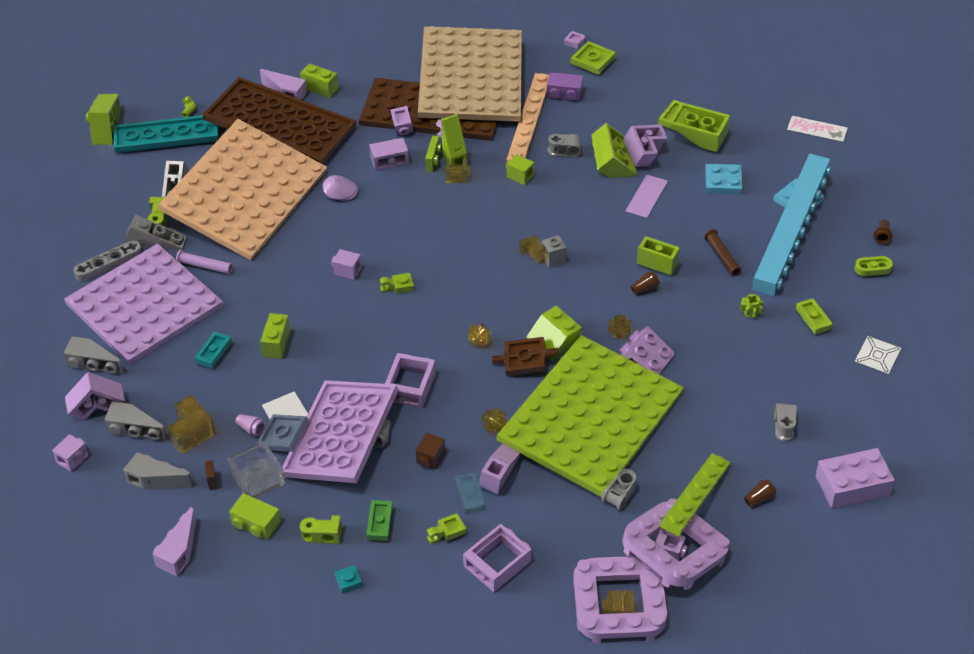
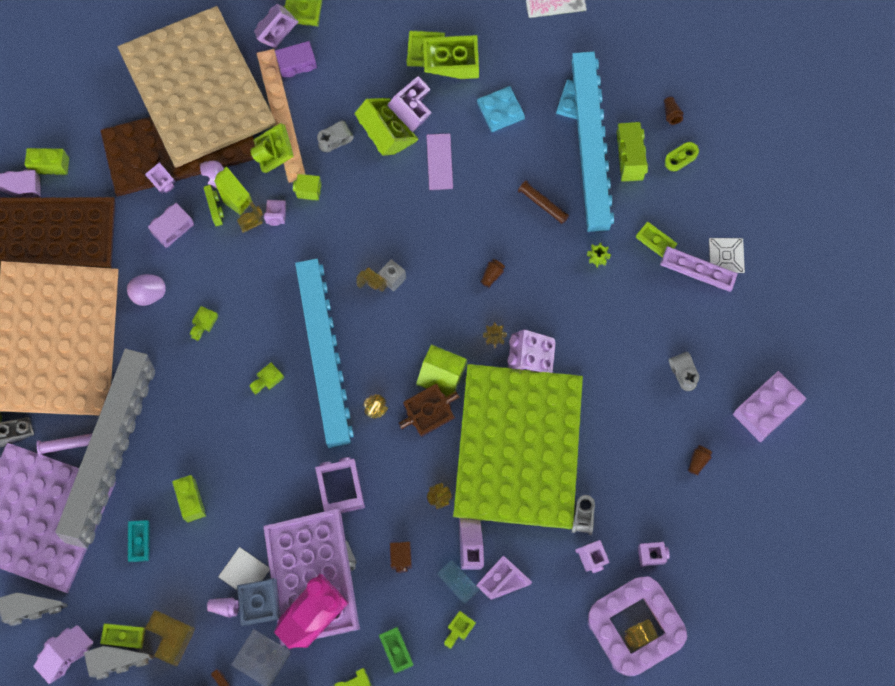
camera: 25 degrees left, 25 degrees up
(154, 408) = (122, 636): none -> lime plate
(229, 269) = (105, 450): none -> light grey brick
(322, 451) = (310, 613): none -> dark pink slope
(346, 264) = (206, 381): lavender brick -> none
(372, 226) = (203, 321): none -> lime plate
(457, 284) = (323, 354): none -> medium azure brick
(481, 177) = (275, 212): none -> lavender bracket
(482, 571) = (511, 658): lavender window -> none
(506, 133) = (272, 148): none -> lime plate
(512, 508) = (502, 579): none -> lavender wing
(561, 57) = (275, 26): none -> lavender slope
(609, 523) = (593, 556): none -> lavender brick
(658, 255) = (490, 237): lime brick -> none
(674, 572) = (650, 578): lavender plate -> none
(694, 495) = (651, 494): lime plate -> none
(826, 245) = (631, 151): none -> lime wedge
(843, 350) = (698, 269): none -> lavender tile

